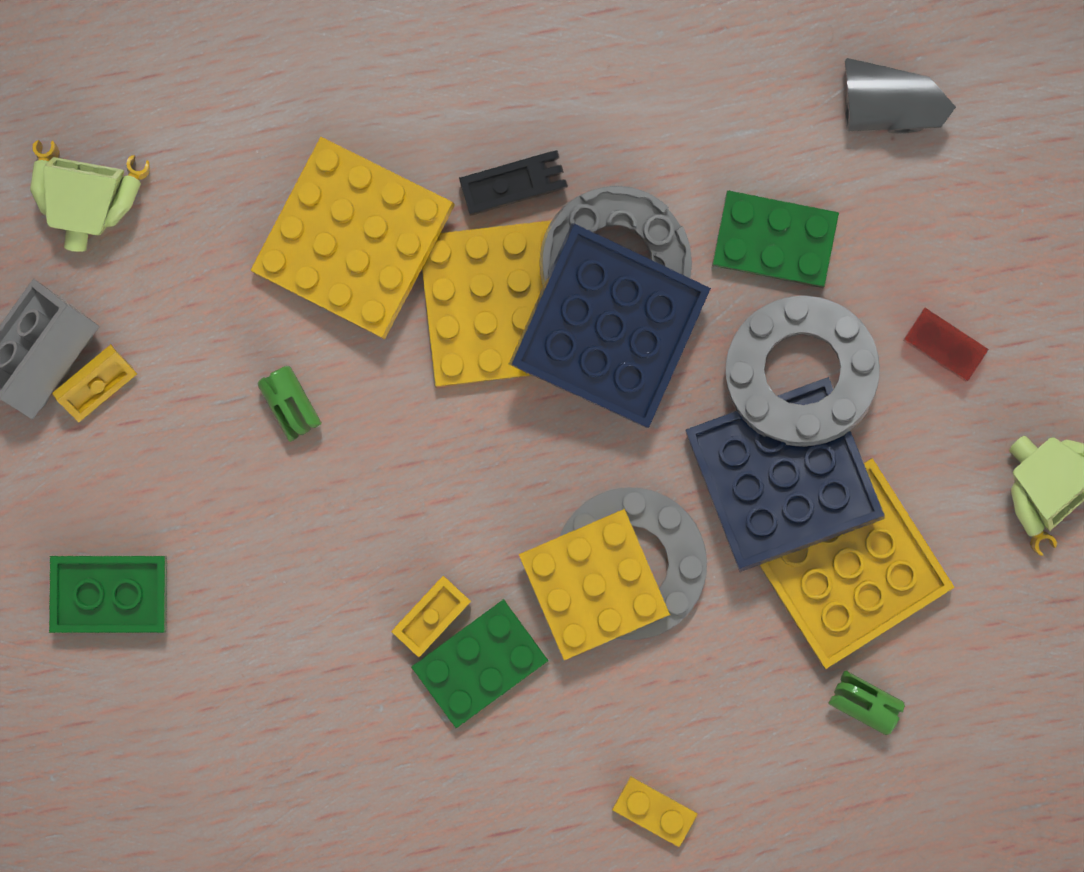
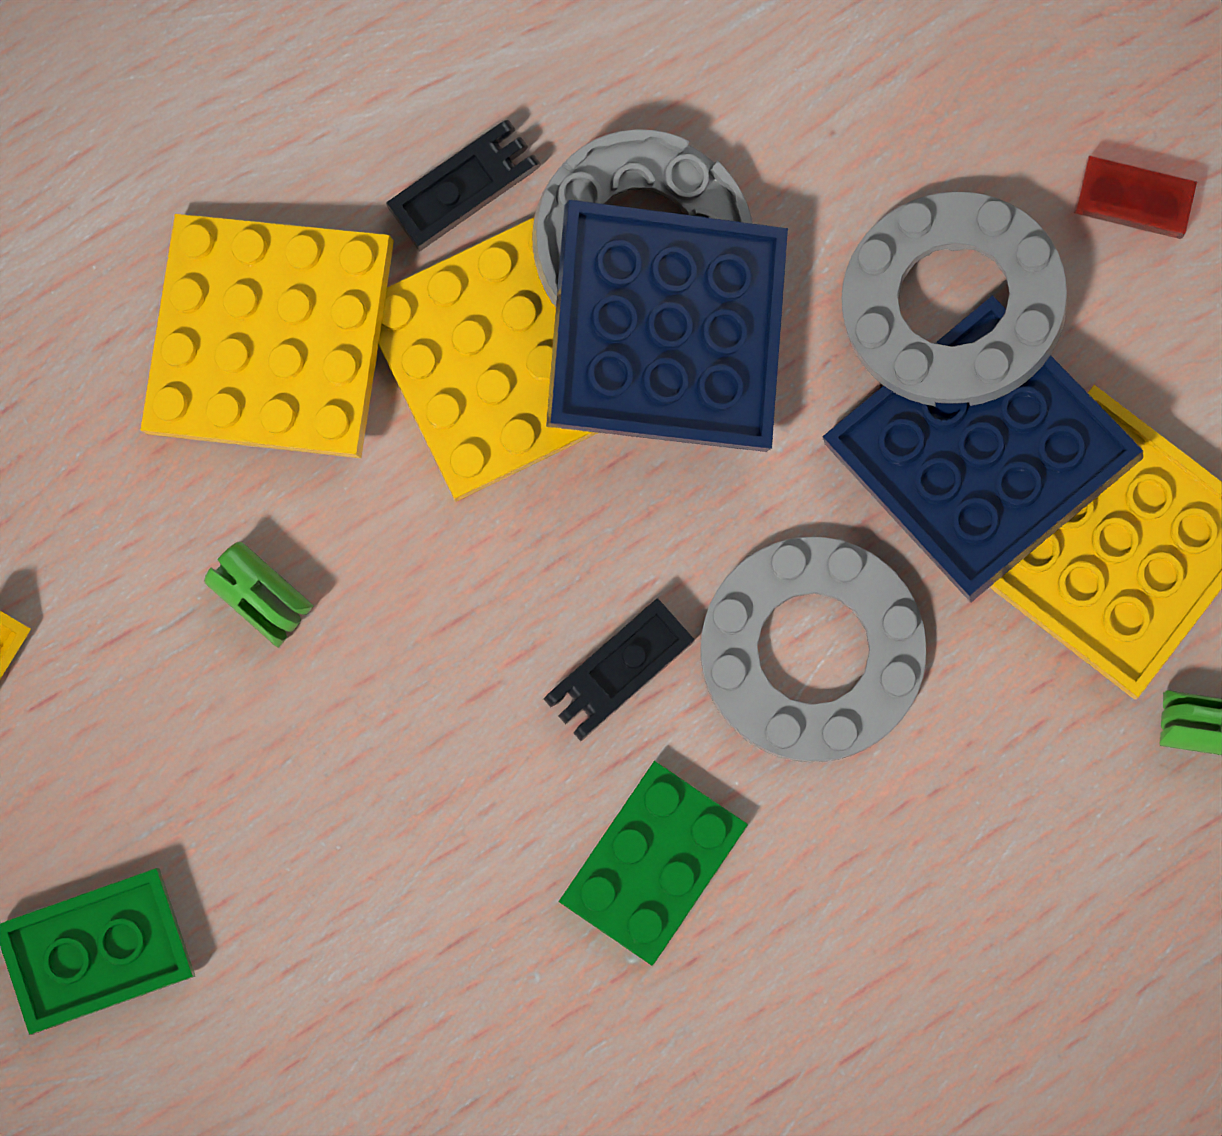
camera: 20 degrees left, 5 degrees down
(431, 616) = (561, 820): yellow plate -> none
(503, 532) = (621, 667): none -> black hinge
(594, 584) = (774, 692): yellow plate -> none
(654, 811) = (972, 983): yellow plate -> none
(775, 239) = (850, 137): green plate -> none

